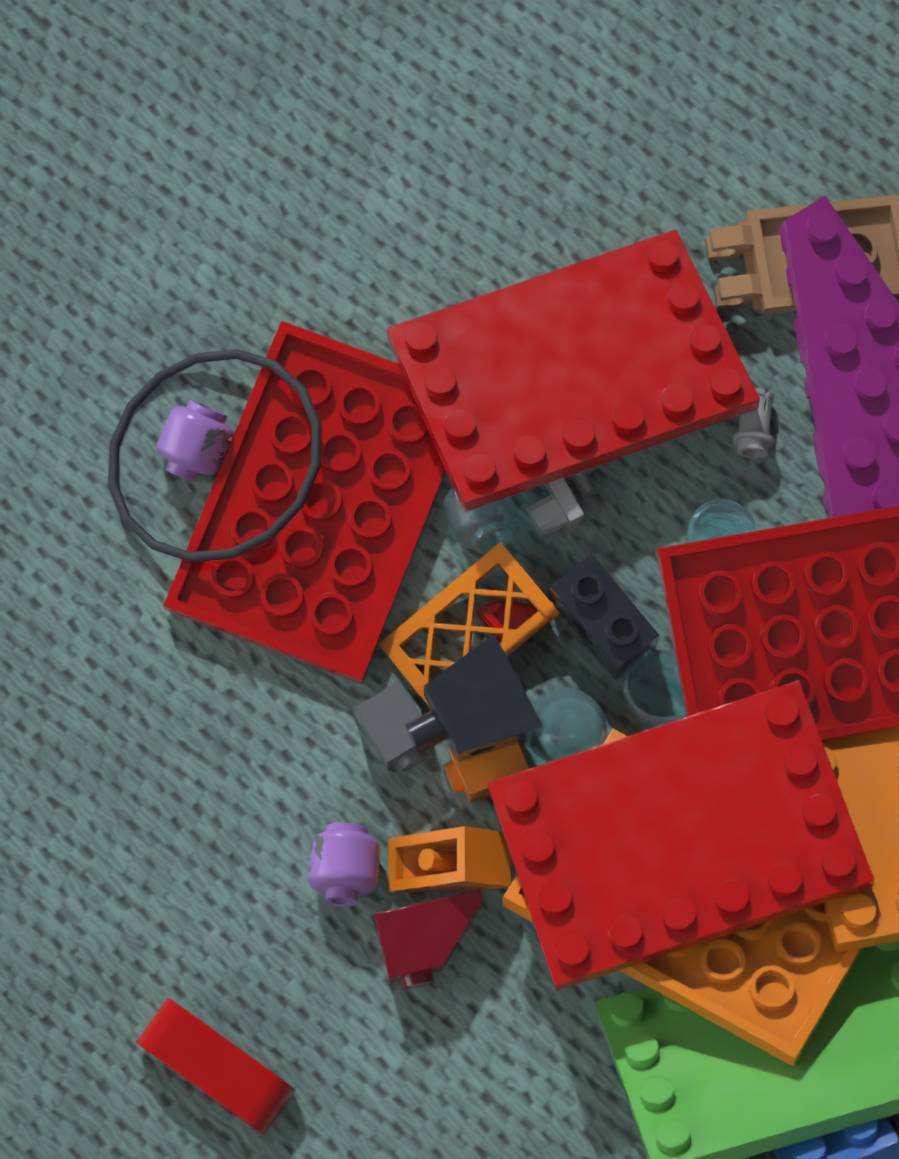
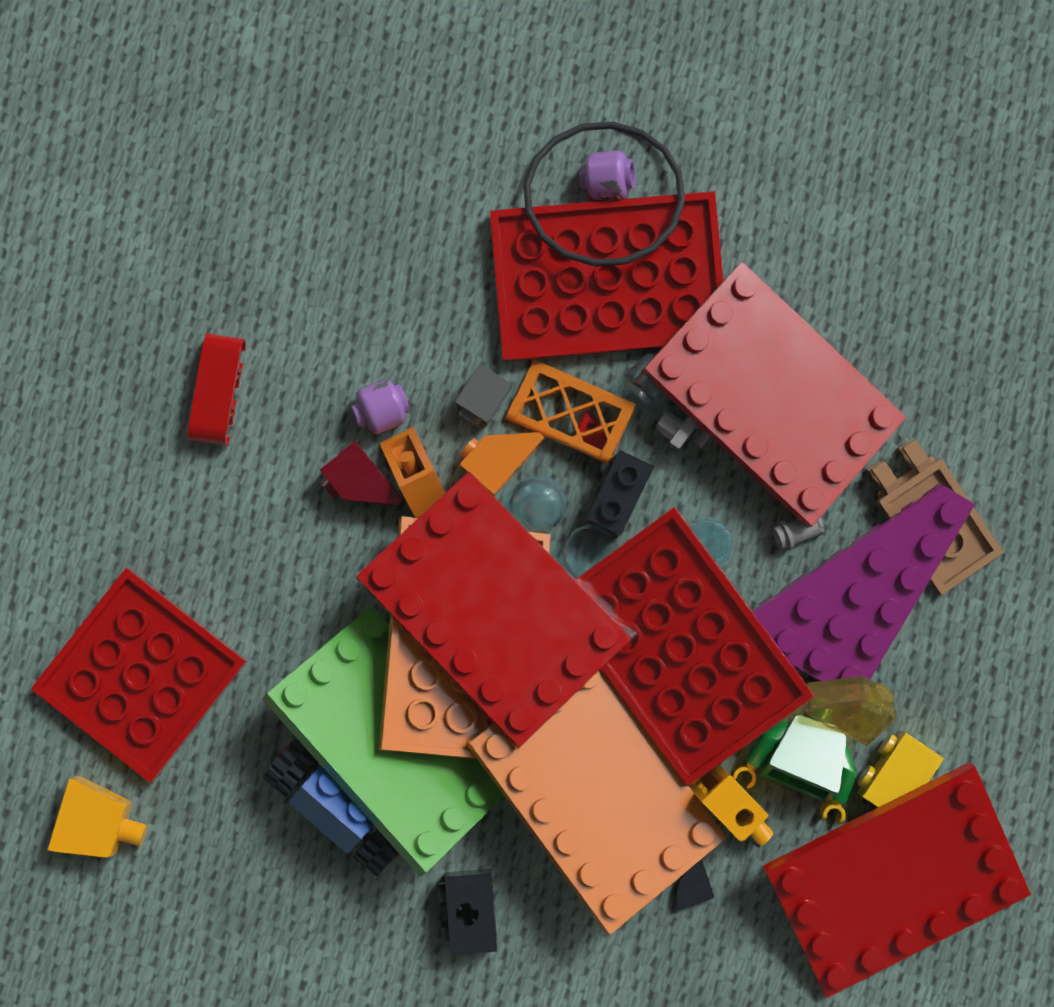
camera: 60 degrees right, 10 degrees up
(476, 706) = (515, 439): black torso -> none

